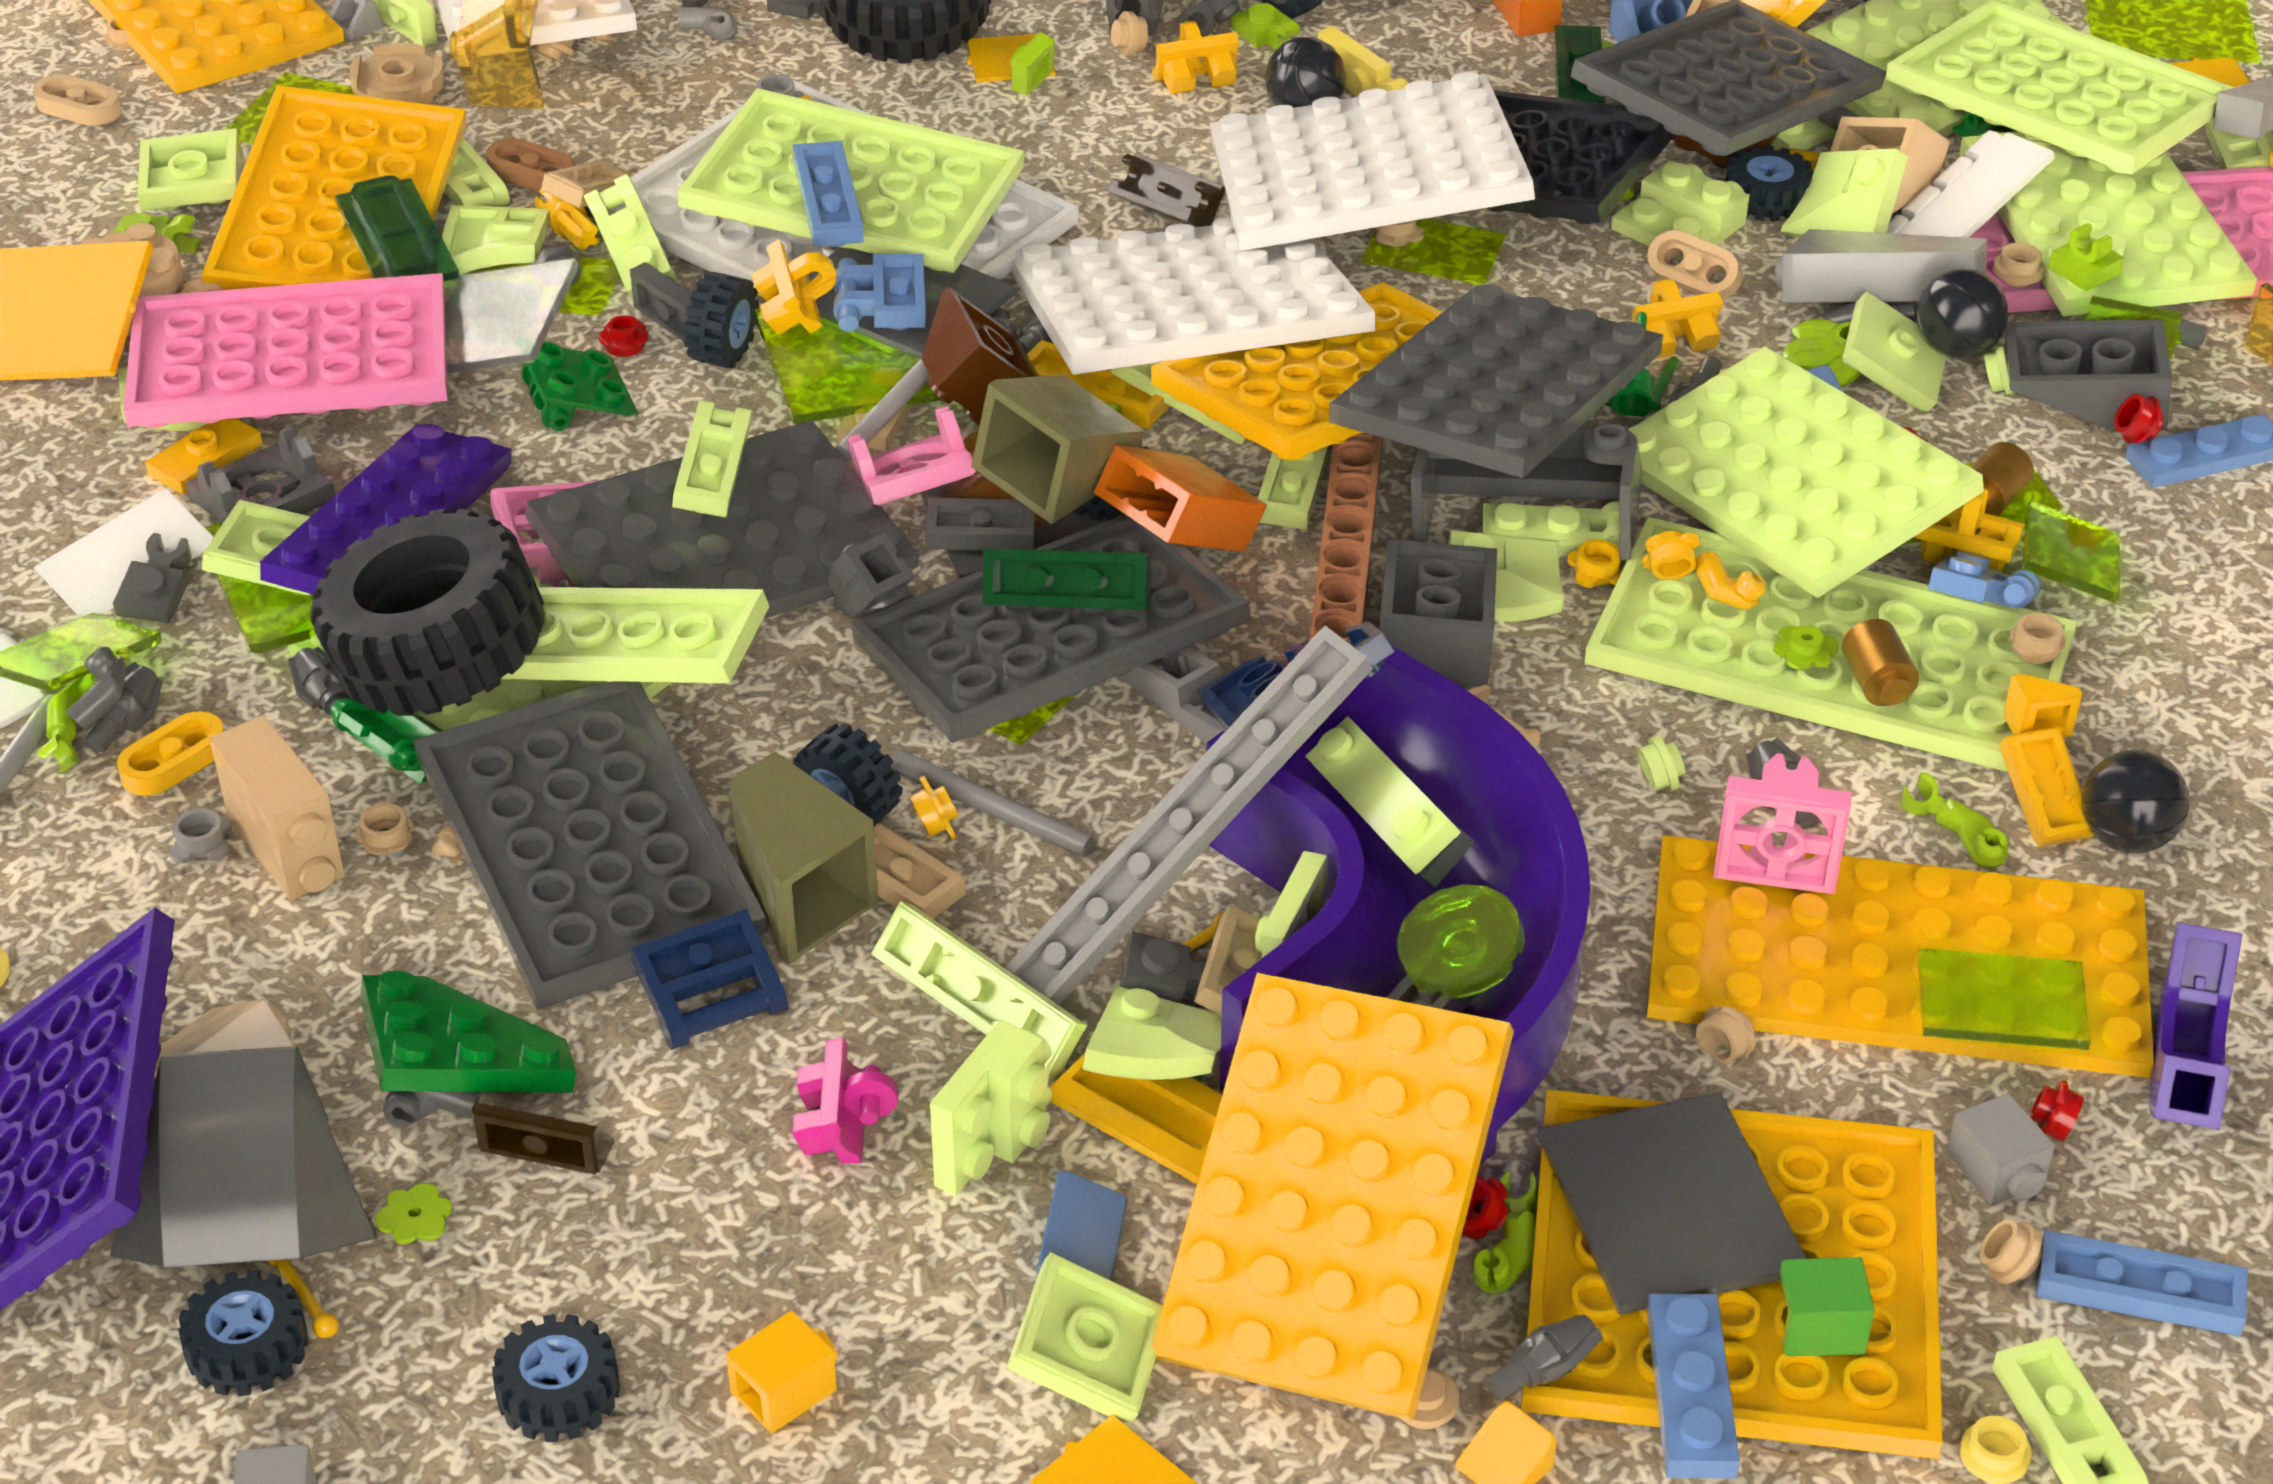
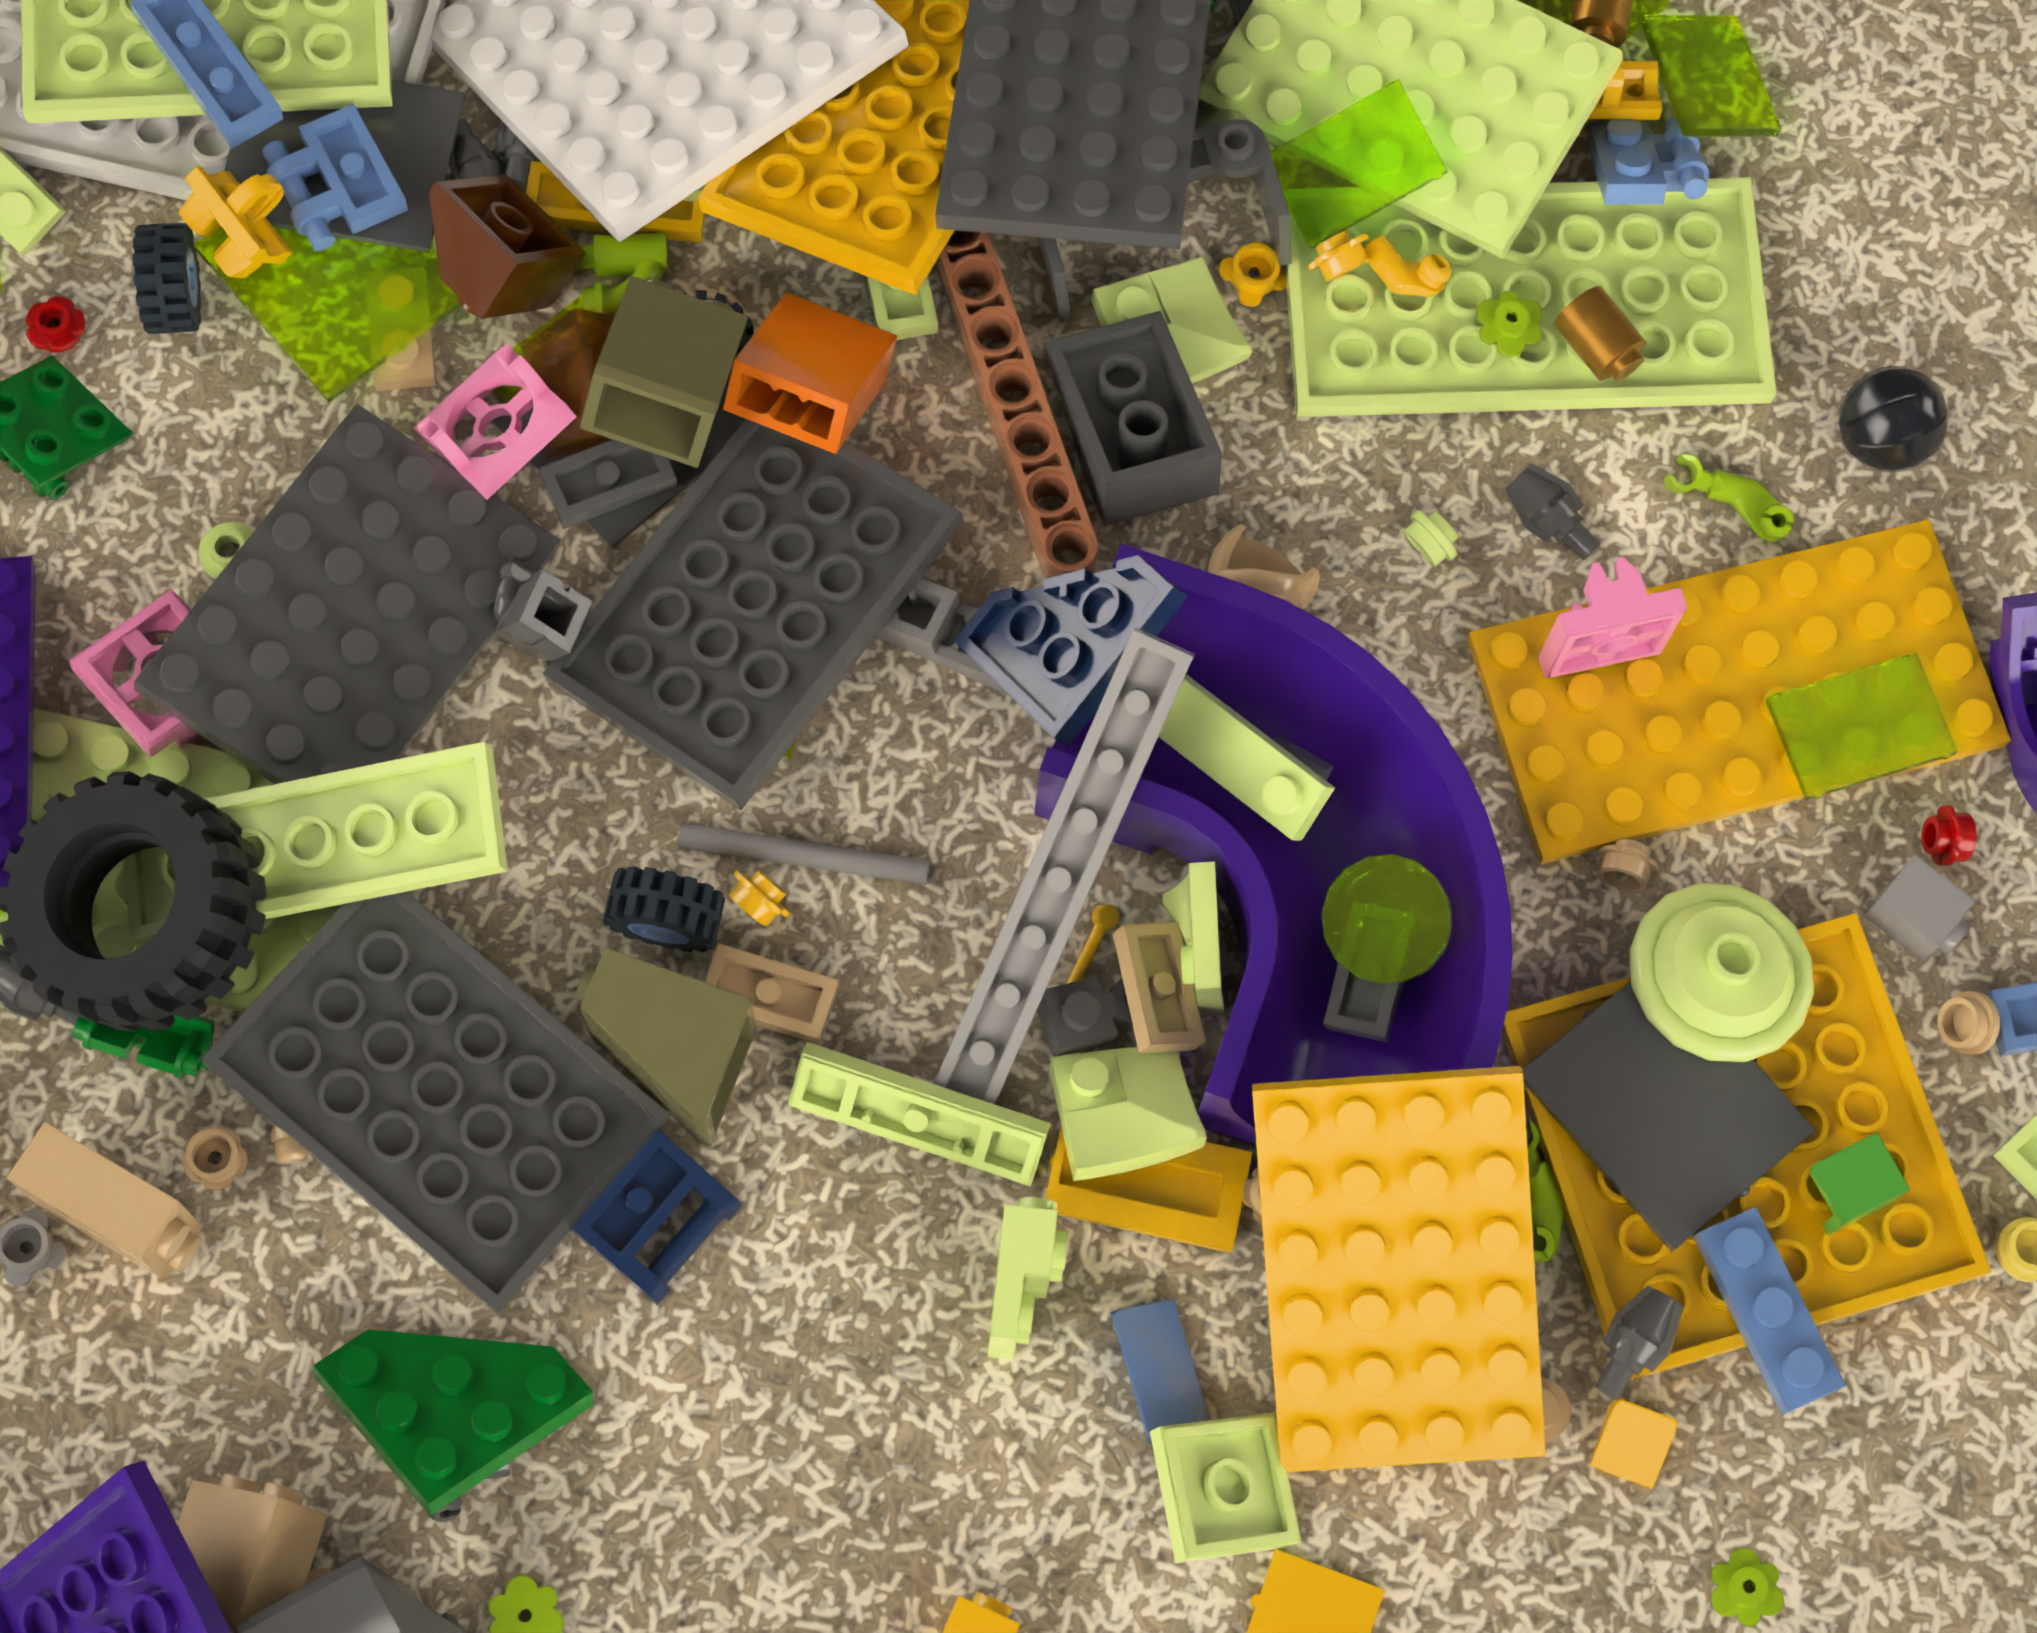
camera: 30 degrees left, 30 degrees up
(541, 1138) = (597, 1472): dark brown slope -> none
(660, 298) = (73, 257): dark grey plate -> none
(712, 459) = (302, 536): yellowish green plate -> none
(847, 1103) = (868, 1309): dark pink hips -> none
(887, 407) = (424, 351): light grey bar -> none
(1066, 578) = (763, 558): dark green plate -> none
(1553, 523) = (1203, 232): yellowish green plate -> none
(1717, 496) = (1356, 163): none -> clear neon green piece
(1772, 1117) = (1721, 972): none -> yellowish green piece
(2037, 638) = (1733, 218): tan plate -> none
(2041, 704) = (1769, 338): yellow slope -> none
(2046, 786) = (1800, 422): yellow plate -> none

